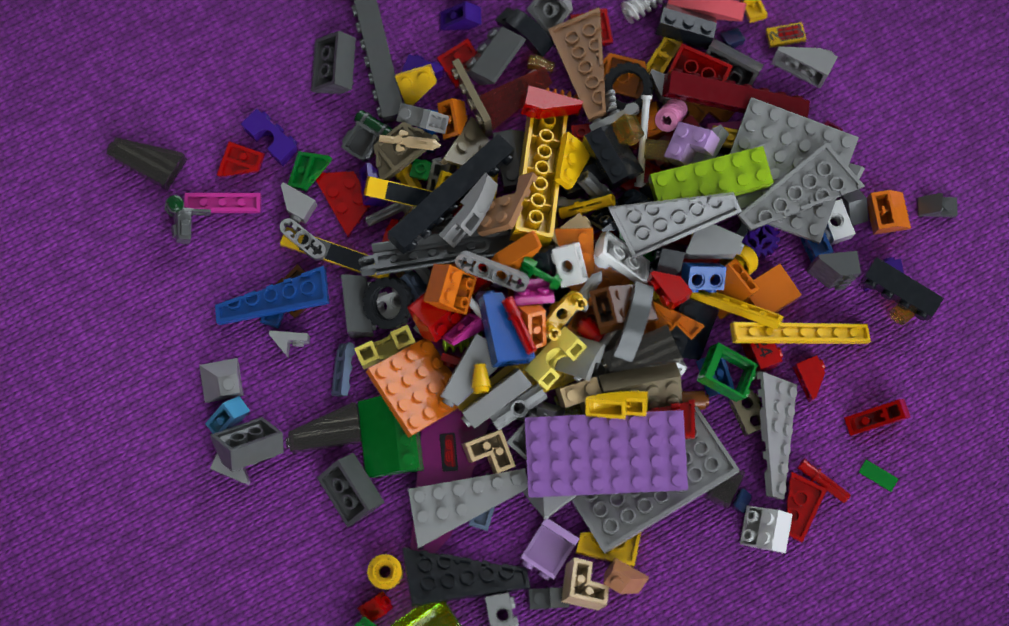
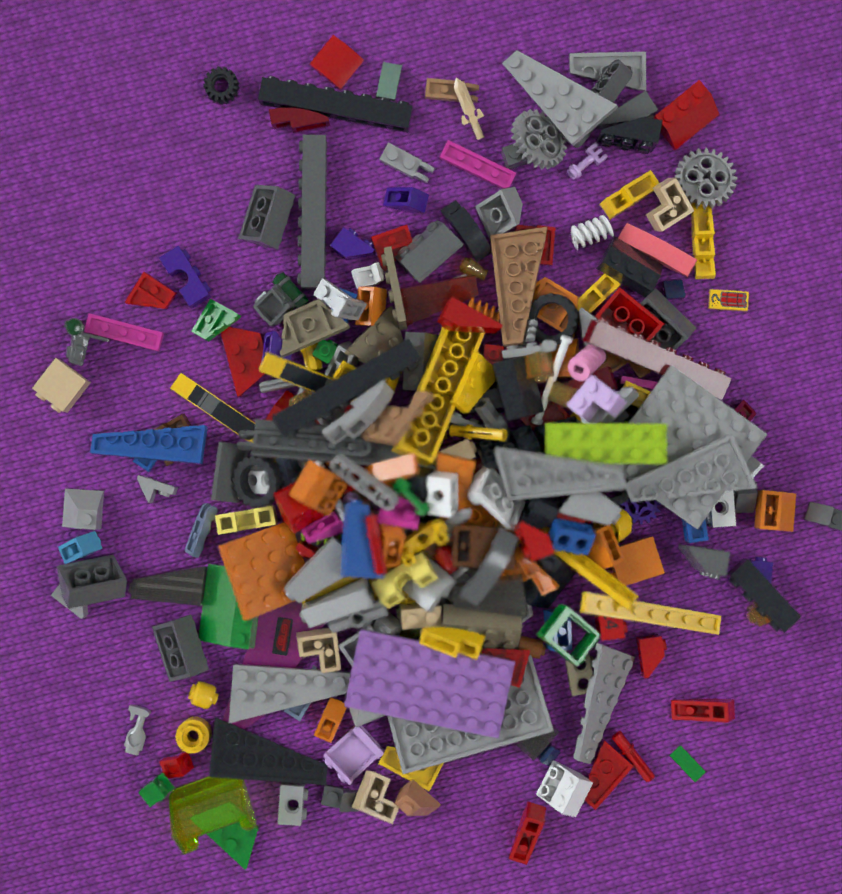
camera: 15 degrees right, 10 degrees up
(148, 161) = (62, 273): clear smoke slope -> none
(173, 266) = (60, 386): none -> tan brick
(298, 204) = (196, 353): light grey slope -> none
(310, 252) = (180, 382): light grey beam -> none
(327, 589) = (136, 736): none -> light grey piece
(384, 529) = (203, 695): none -> yellow head
(409, 141) = (319, 323): tan sword -> none
(415, 83) = (342, 260): yellow wing -> none
(443, 92) = (368, 275): none -> white bracket
(480, 379) = (325, 586): yellow cone -> none
(517, 522) = (330, 720): none -> orange slope
(743, 583) = (527, 832): none -> red slope
(805, 63) = (743, 341): light grey slope -> none

